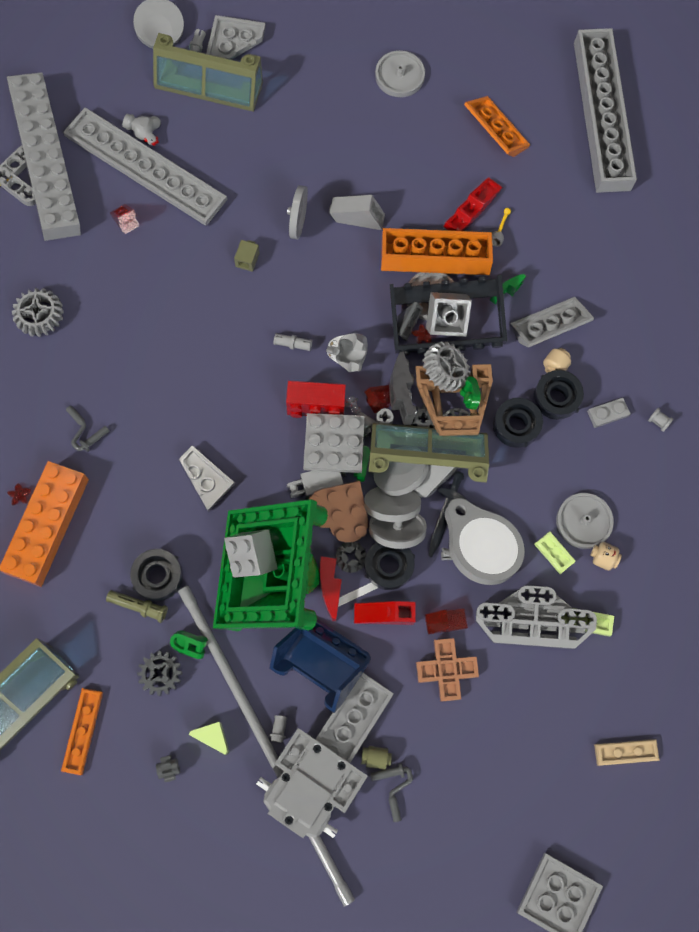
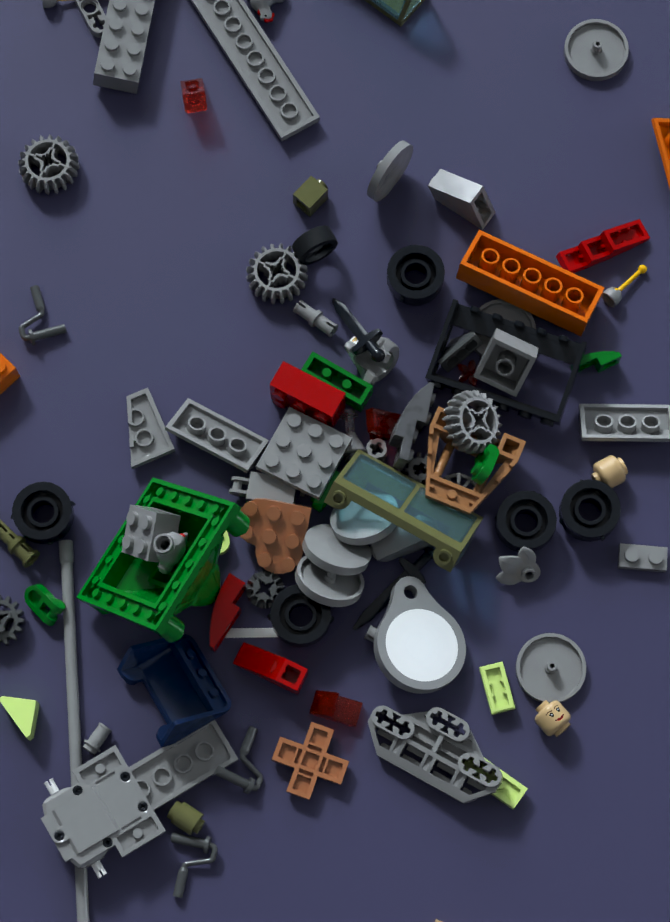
camera: 30 degrees right, 0 degrees up
(234, 319) = (262, 264): none -> light grey gear
(261, 458) = (217, 435): none -> light grey slope
(267, 288) = (314, 244): none -> black tyre
(274, 559) = (169, 549): none -> light grey animal
(334, 376) = (357, 390): none -> green brick
(341, 340) = (366, 340): none -> black sword
(356, 268) = (415, 258): none -> black piece
(411, 708) = (247, 785): none -> dark grey piece
(528, 458) = (516, 568): none -> light grey plate

